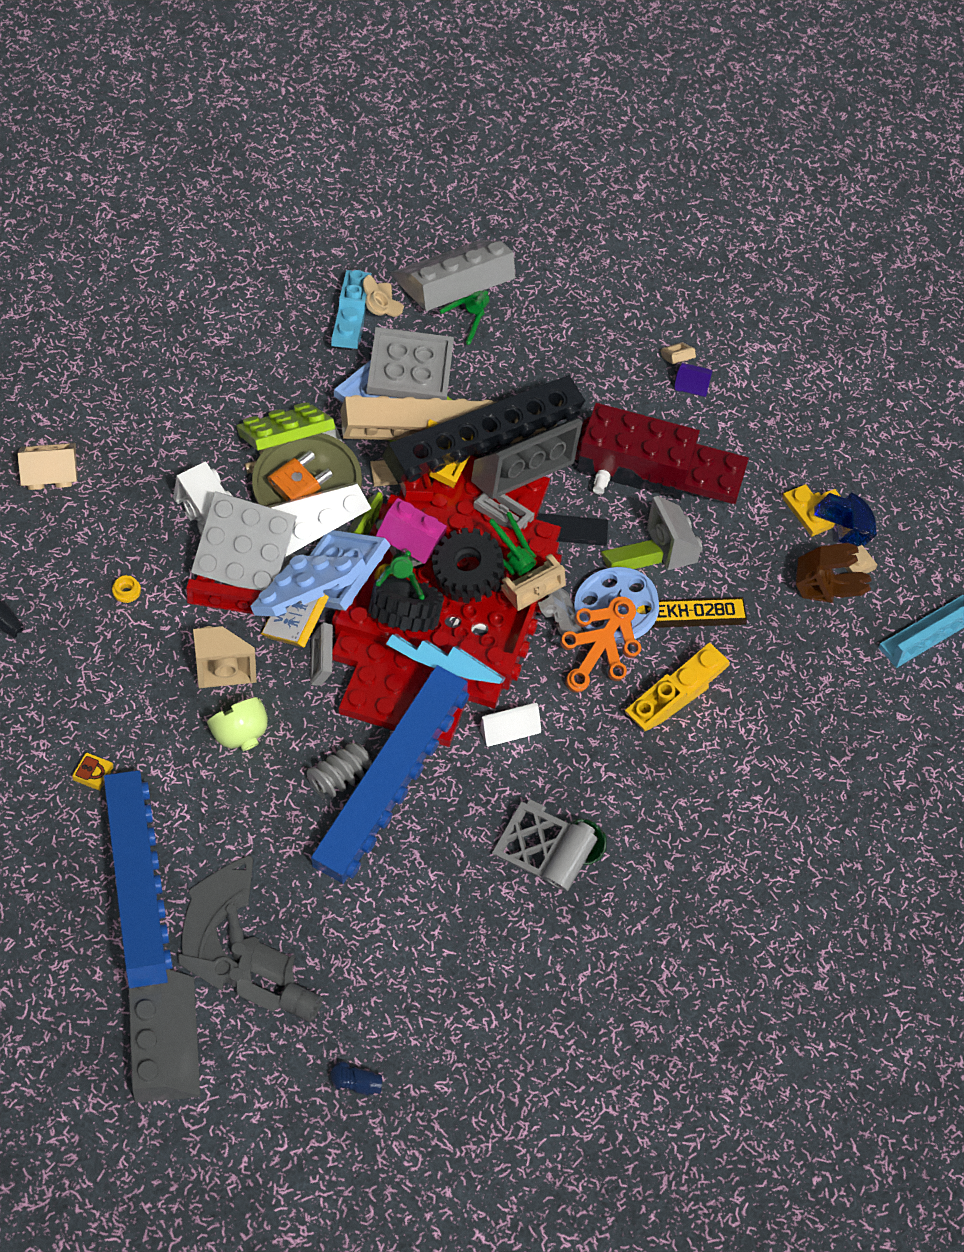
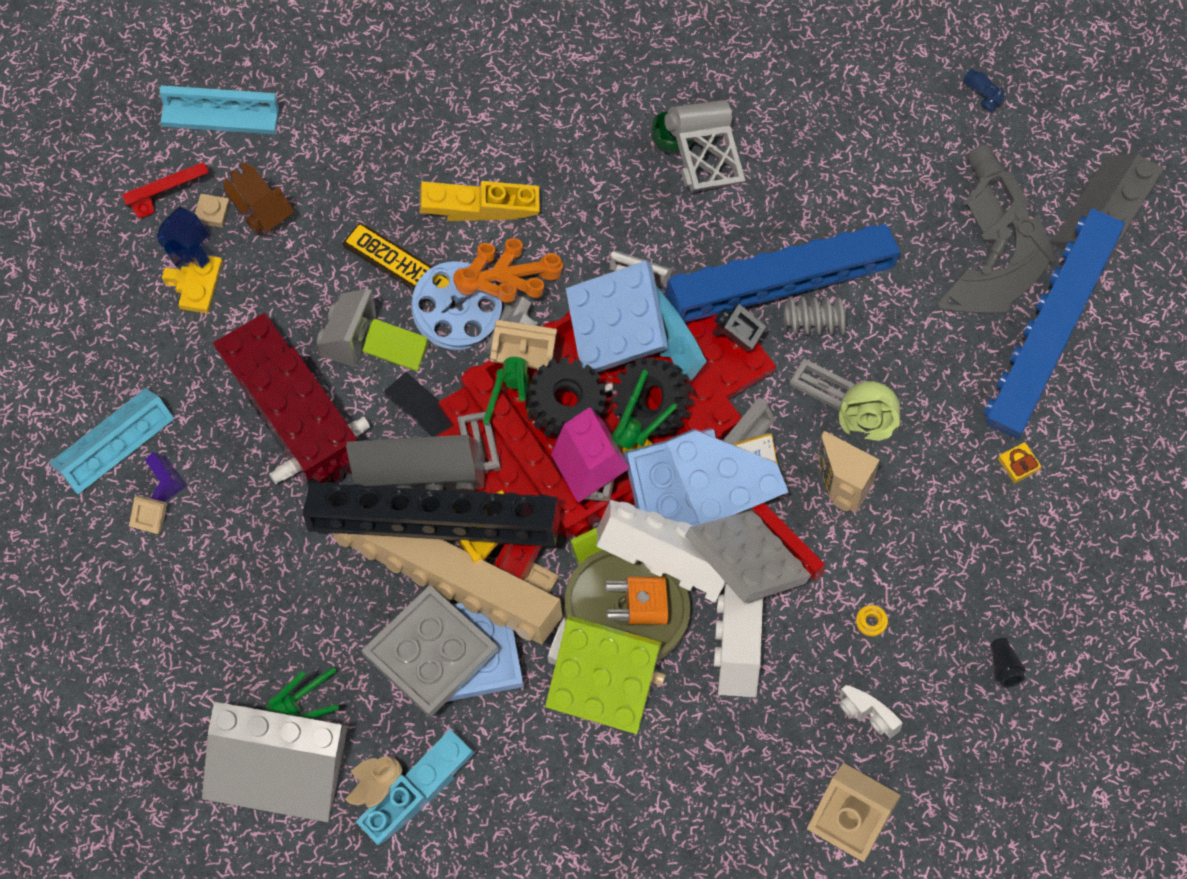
camera: 135 degrees left, 10 degrees up
(90, 527) = (860, 704): none -> white slope
(272, 743) = (823, 397): none -> light grey tile
(386, 700) = (739, 326): none -> black bracket
(481, 634) = (617, 317): none -> light blue plate
(747, 376) = (112, 440): none -> medium azure fence
(911, 541) = (140, 198): none -> red hinge

